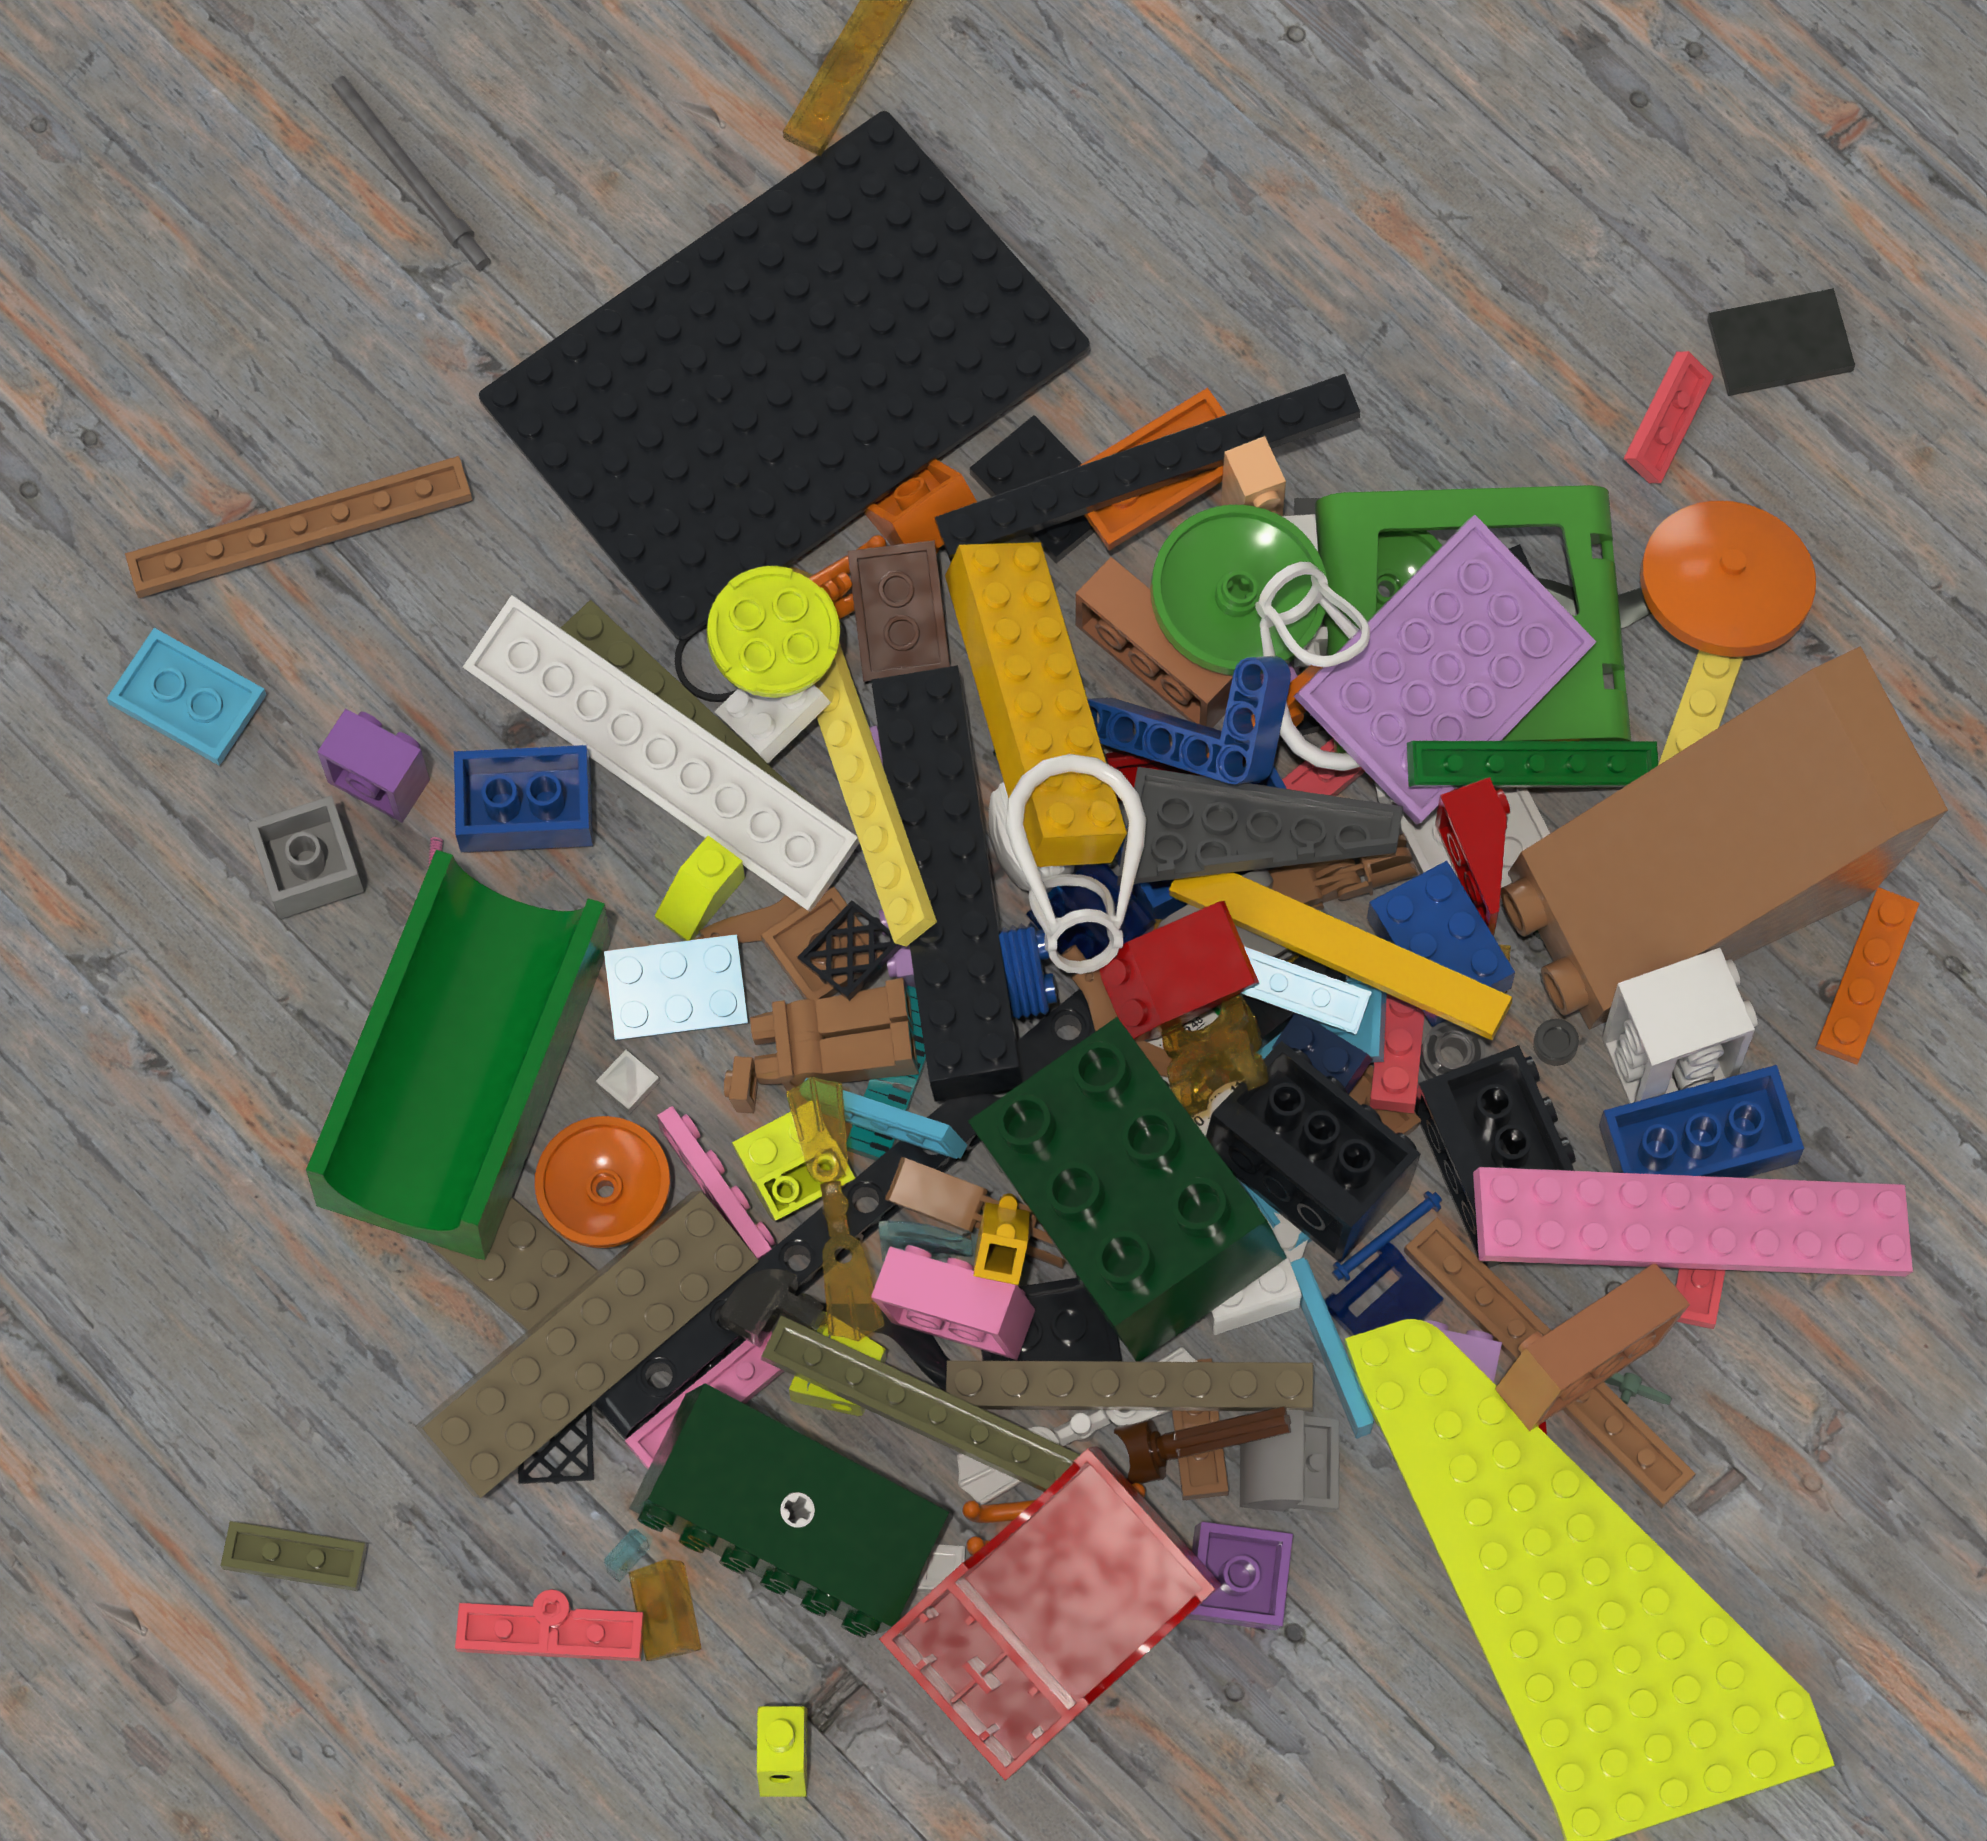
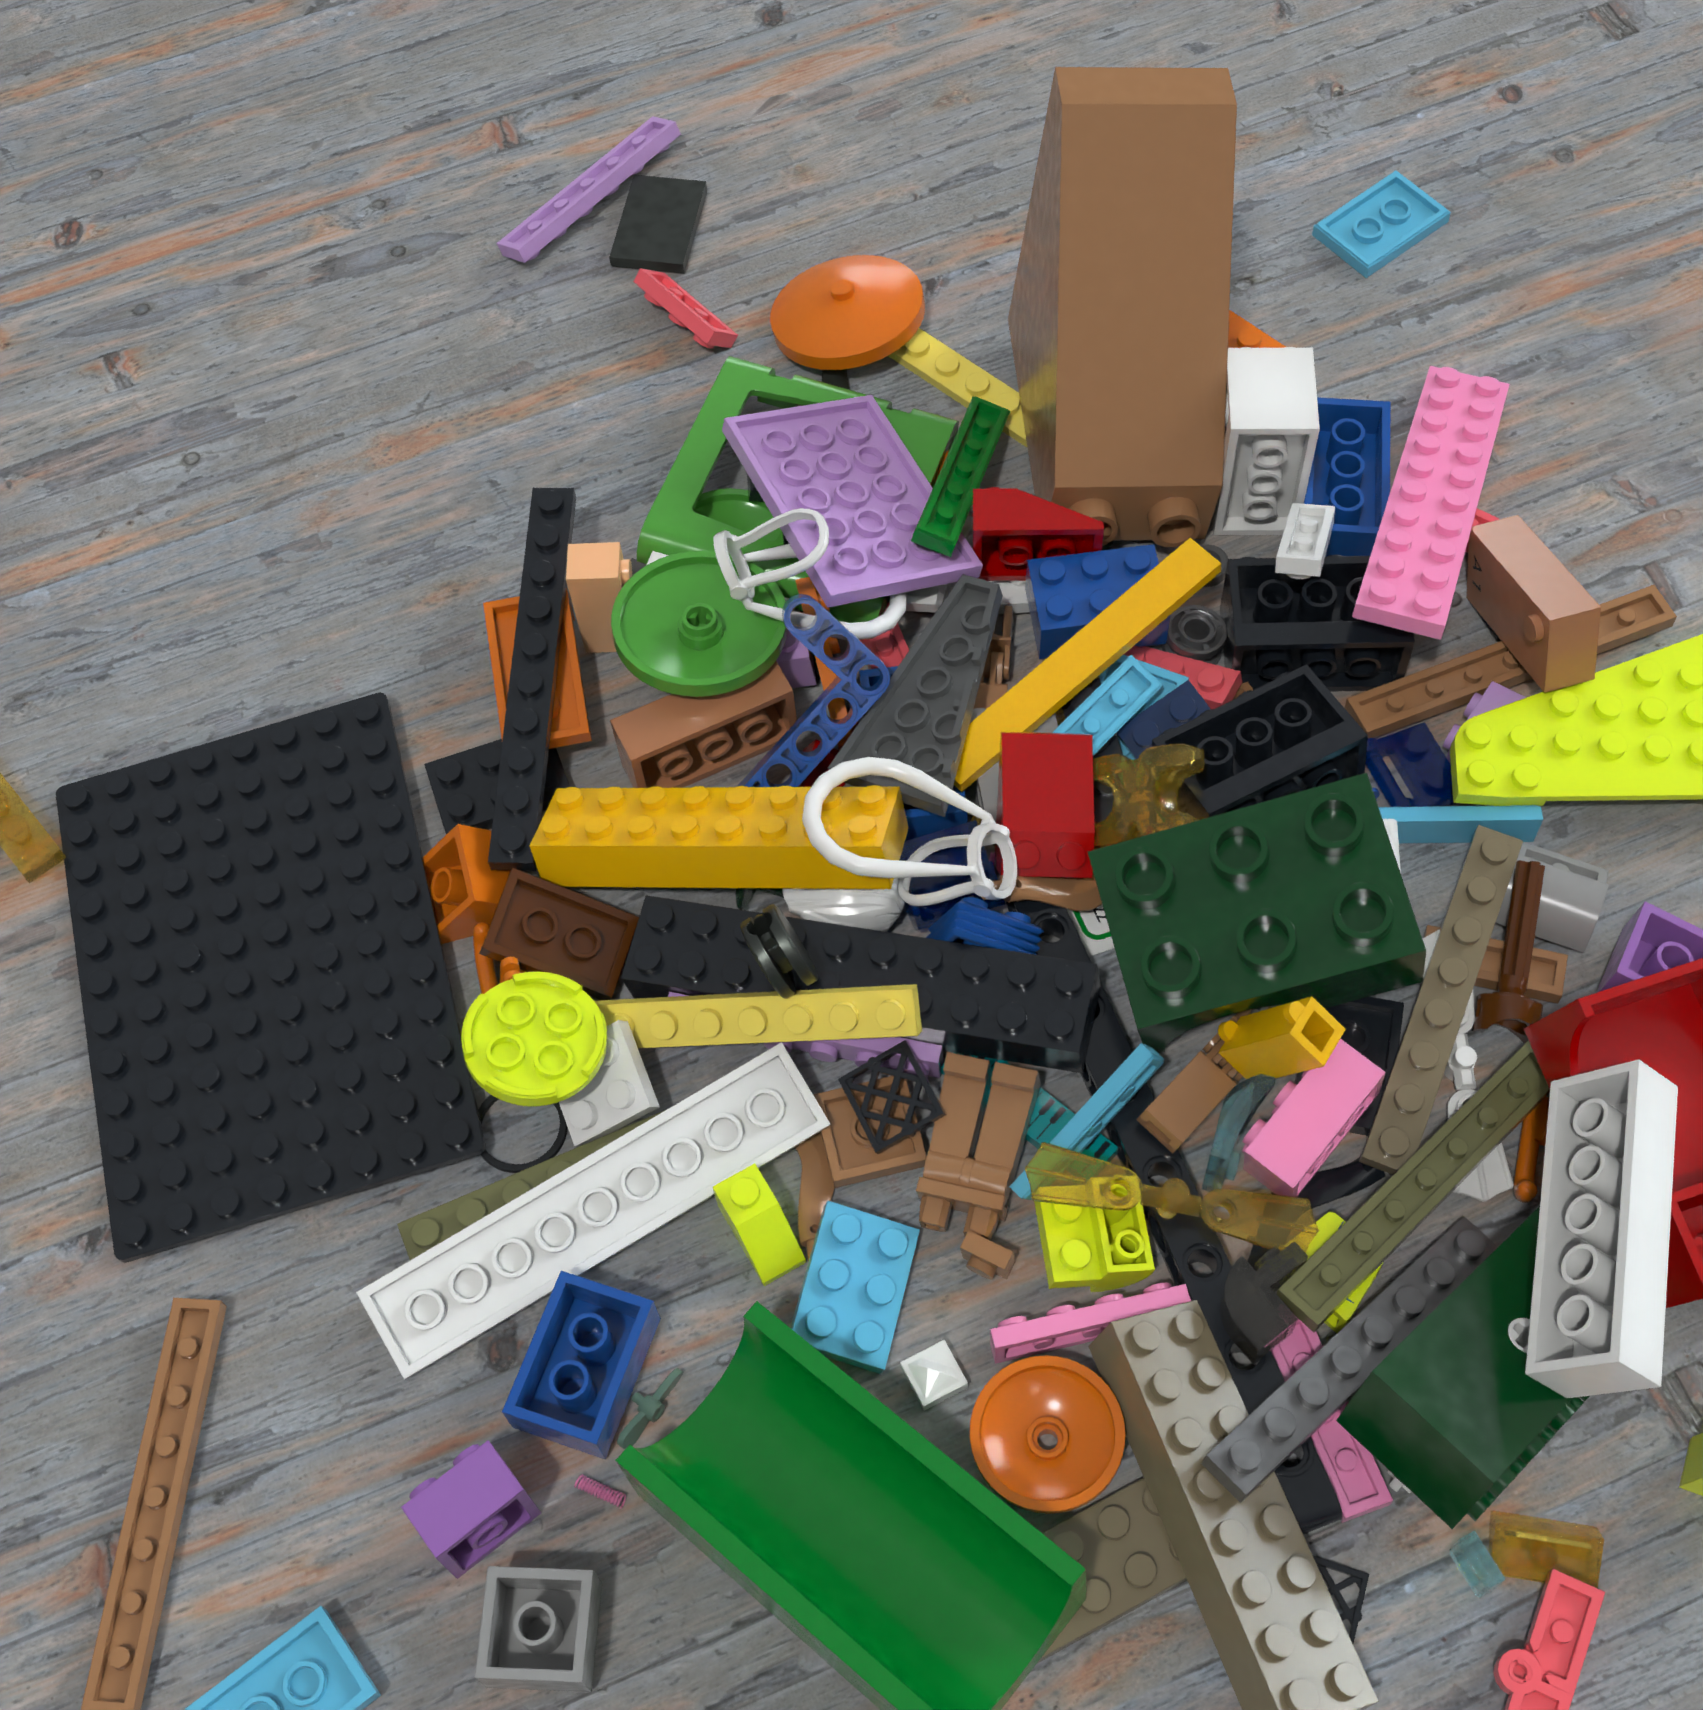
camera: 65 degrees left, 10 degrees down
(514, 869) = (649, 1409): none -> sand green piece
(693, 1364) = (1344, 1363): none -> flat silver plate
(894, 1528) = (1604, 1232): none -> white brick
(919, 795) = (778, 950): none -> pearl dark grey head
(1563, 1107) = (1305, 540): none -> white plate
(1793, 252) = (588, 189): none -> lavender plate

